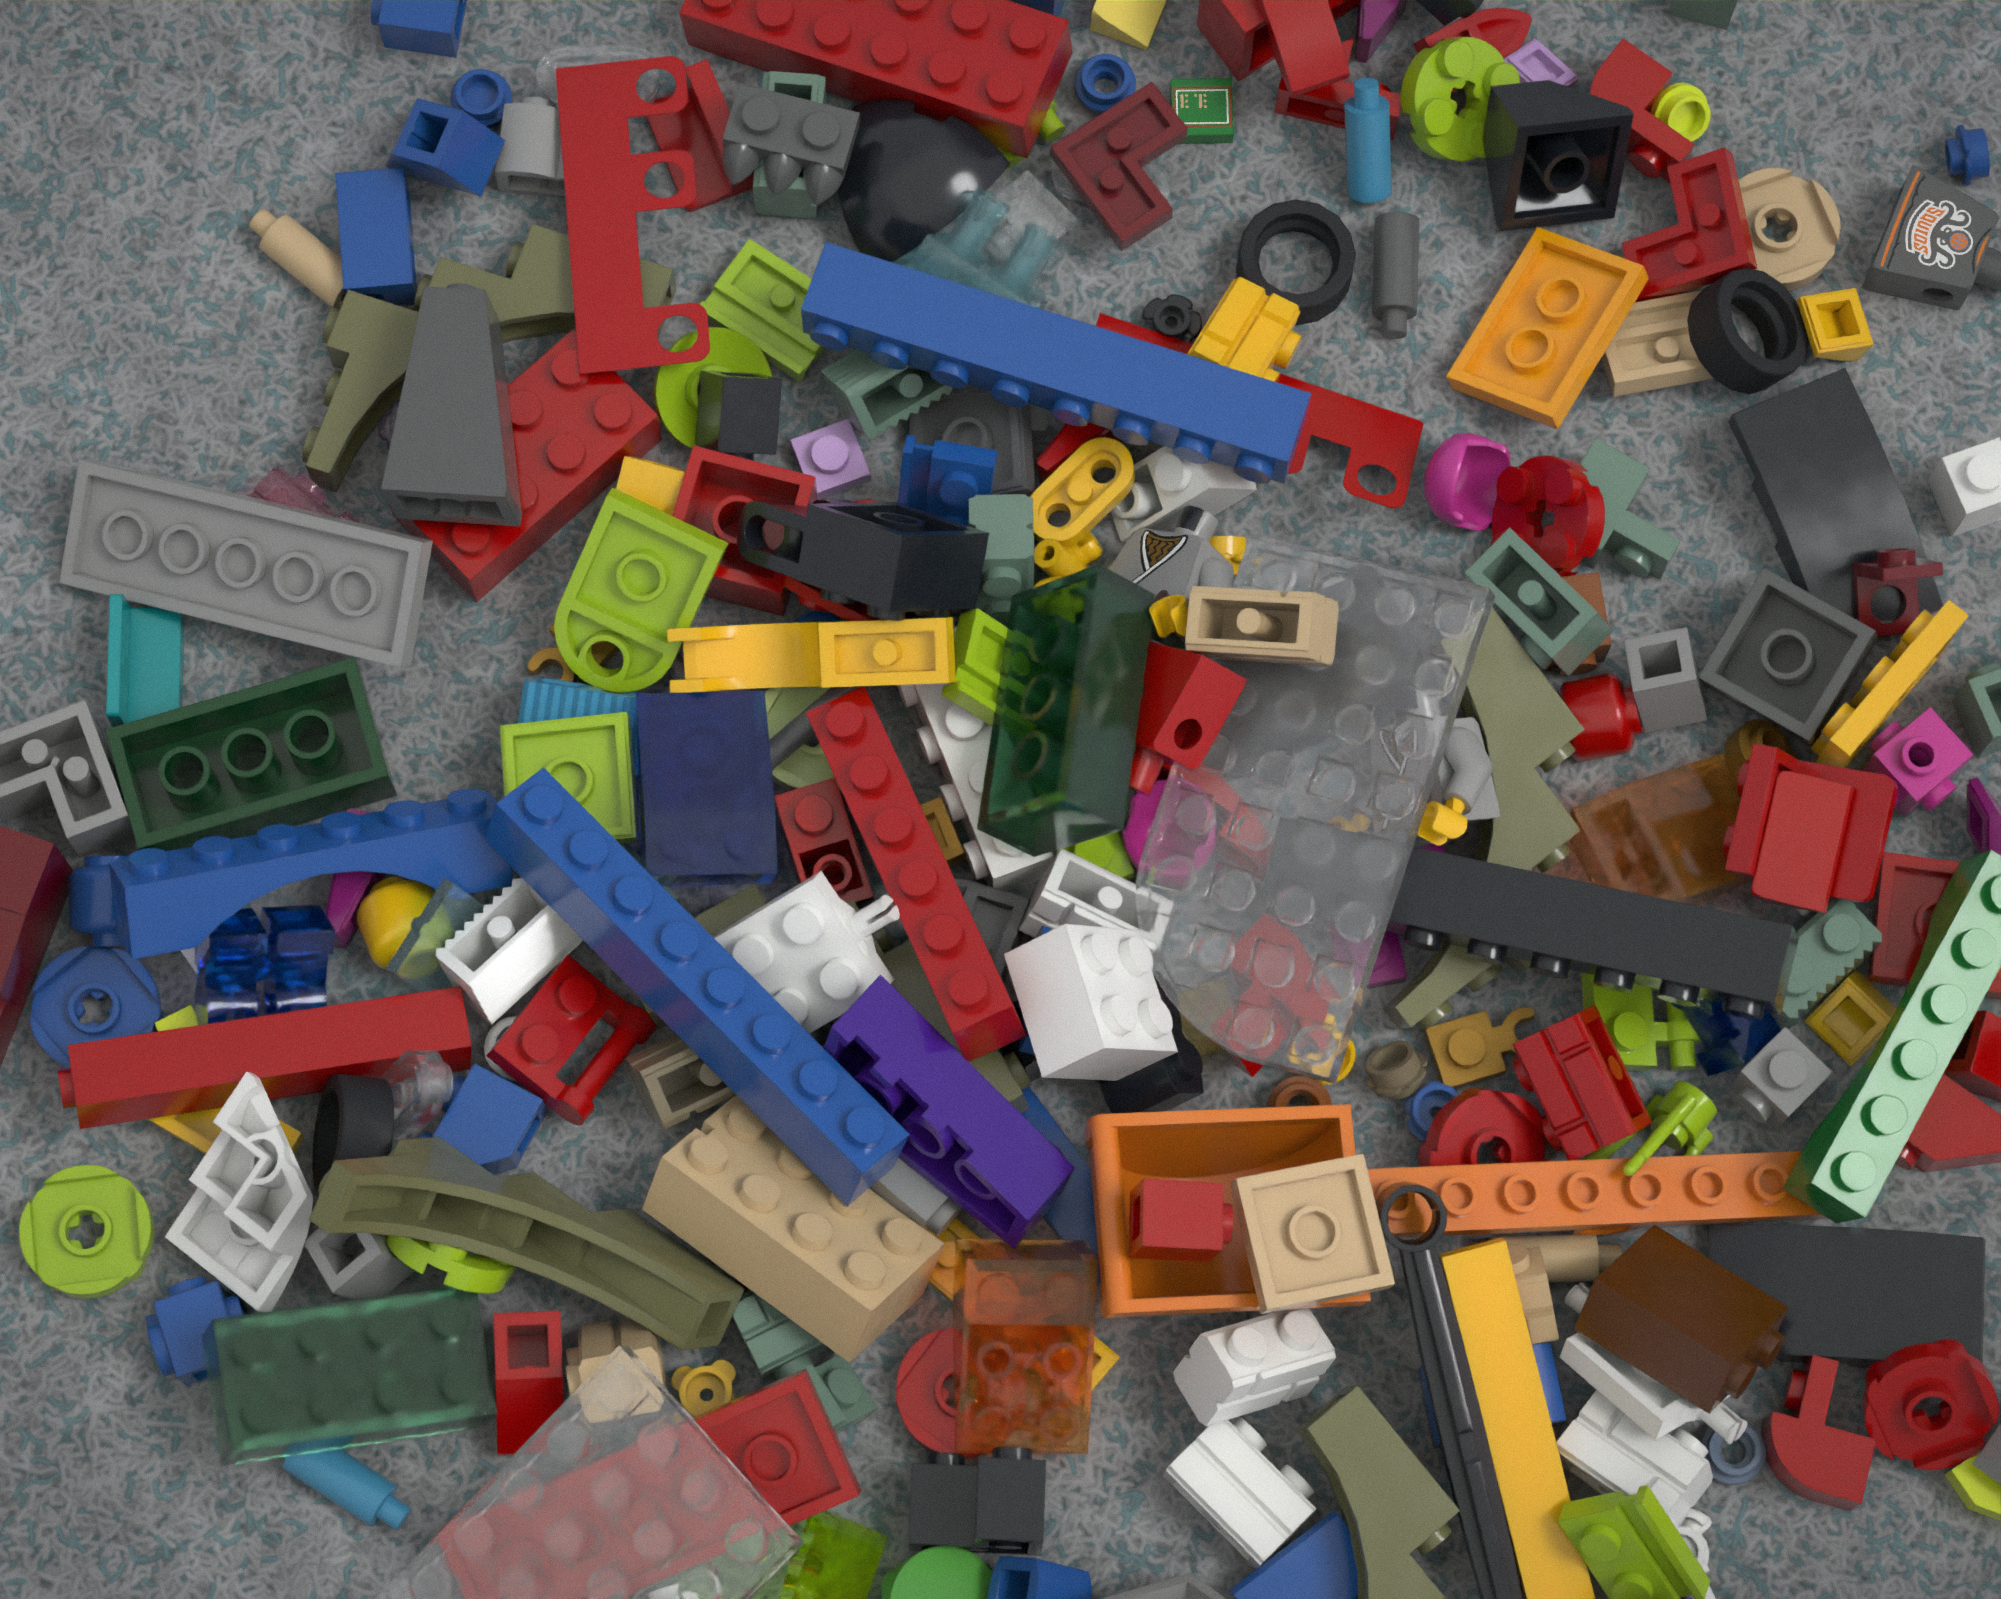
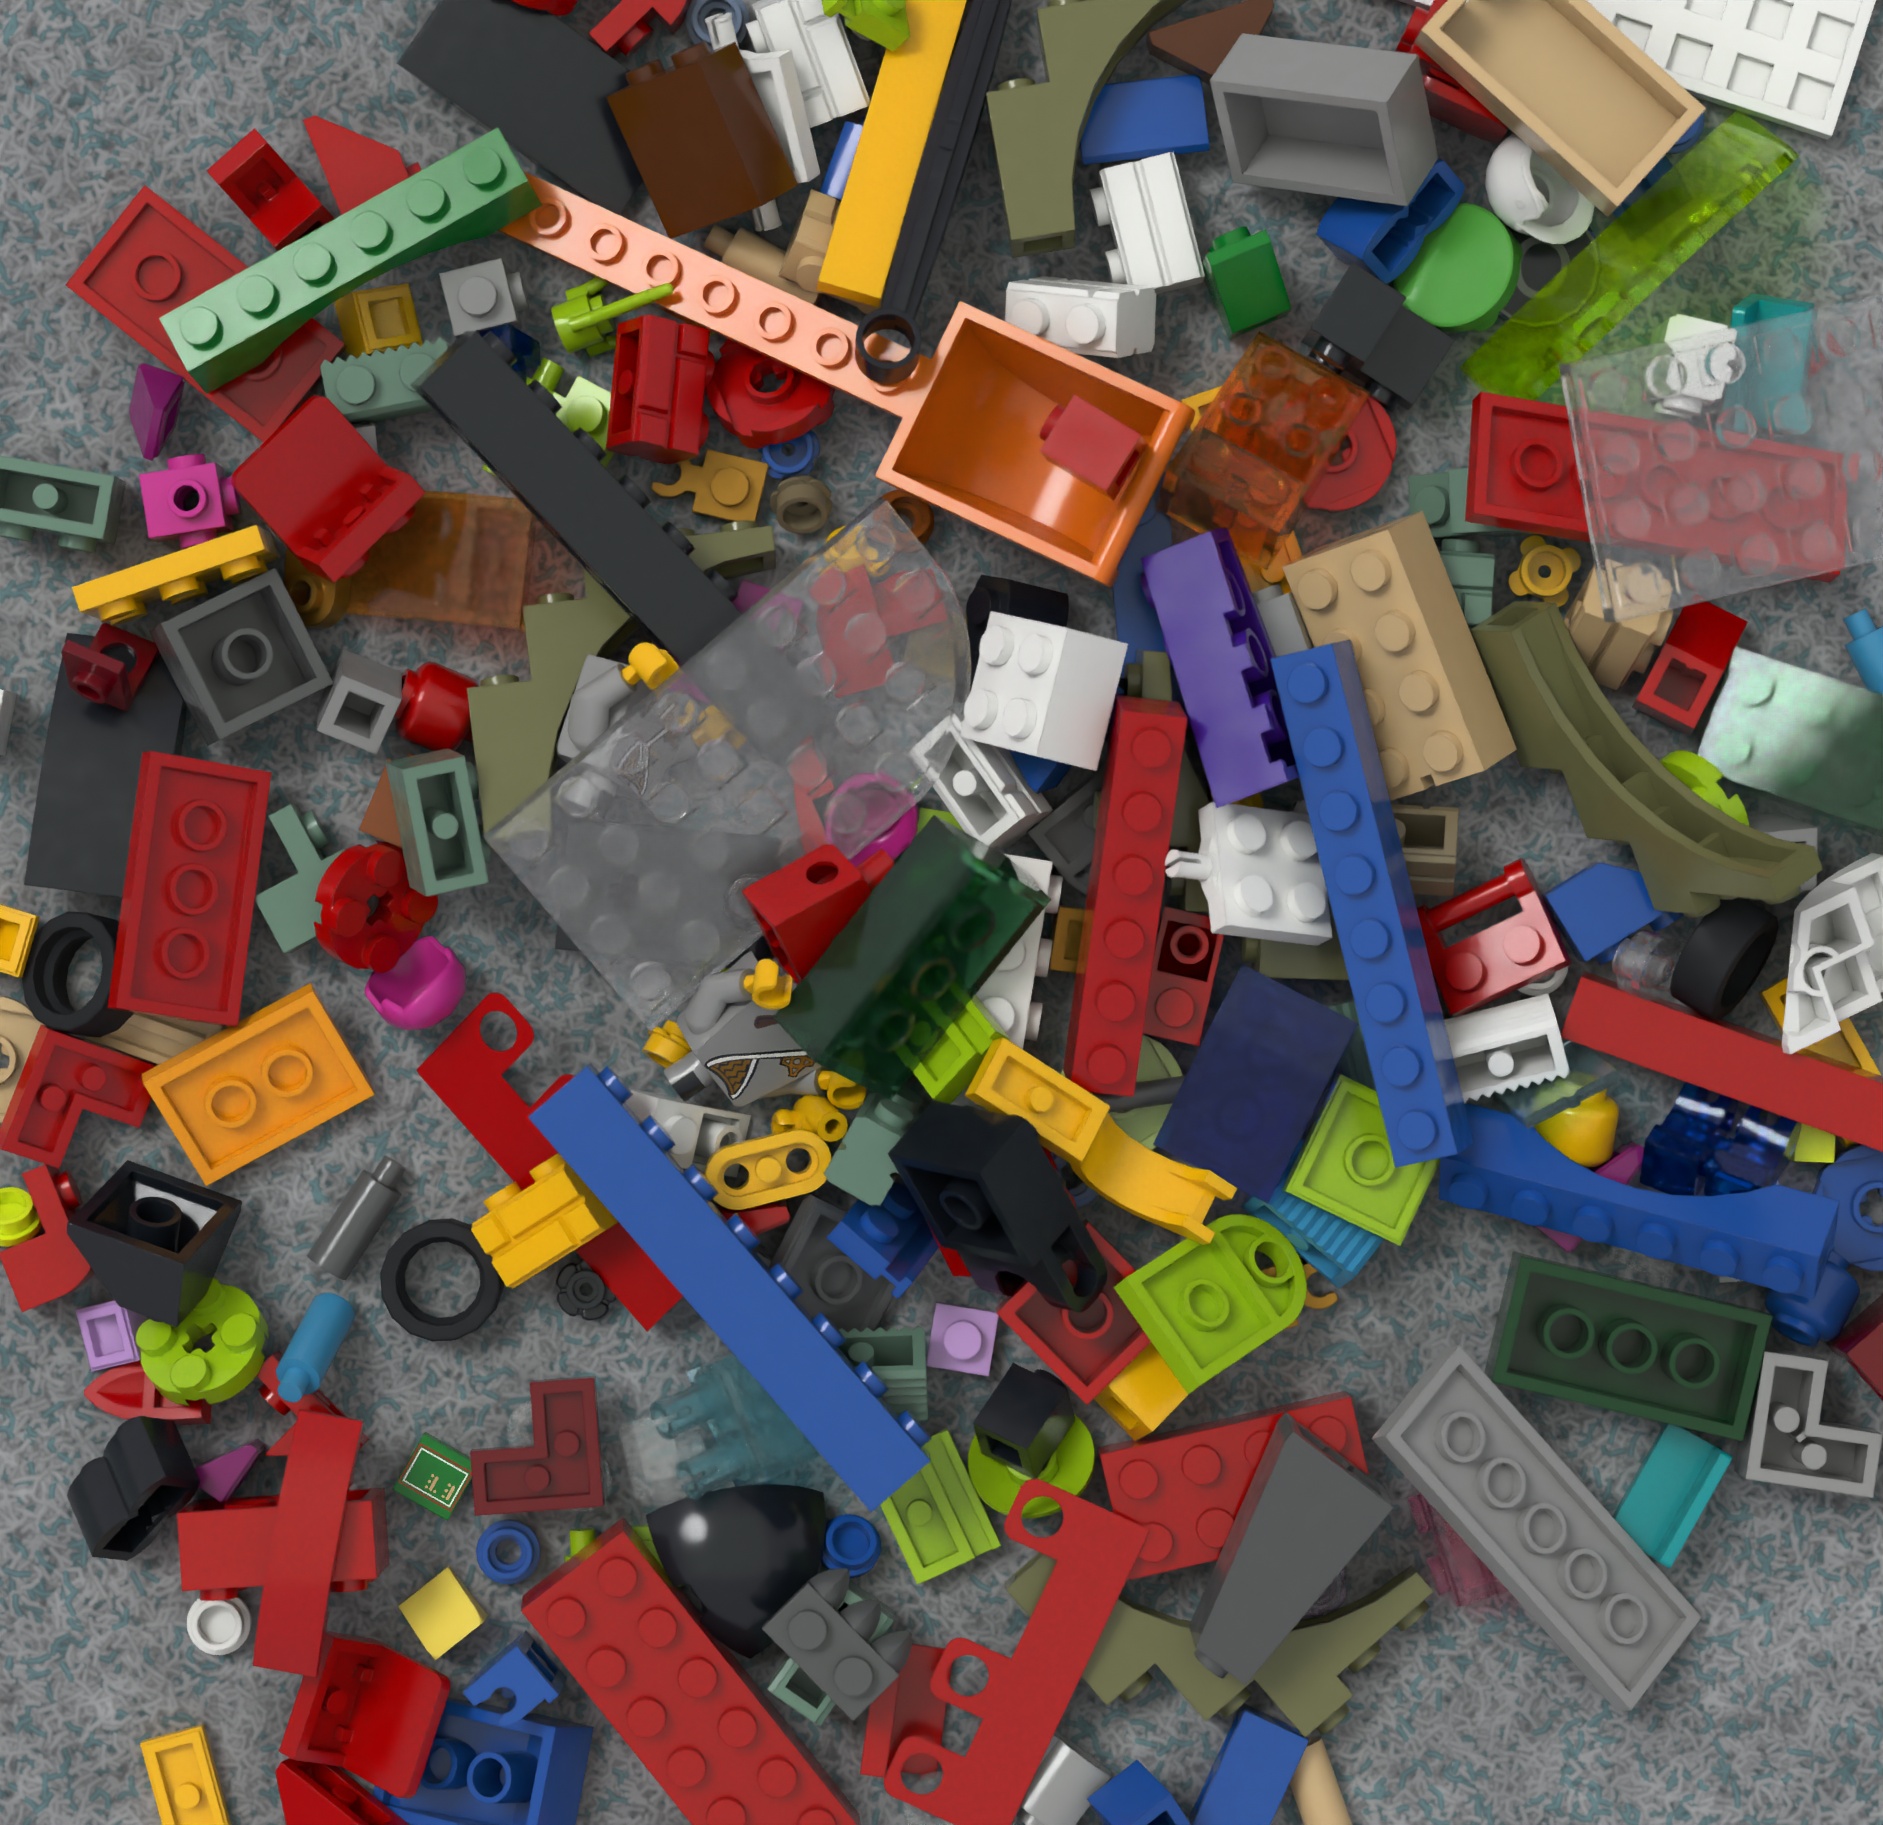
camera: 145 degrees left, 15 degrees up
(816, 230) = (851, 1544): none -> blue plate
(1127, 1486) = (1245, 281): none -> green slope
(1262, 625) = (703, 926): tan brick -> none
(1312, 1233) = (981, 375): tan plate -> none
(1707, 438) = (189, 889): none -> red plate
(1801, 841) = (342, 478): red slope -> none

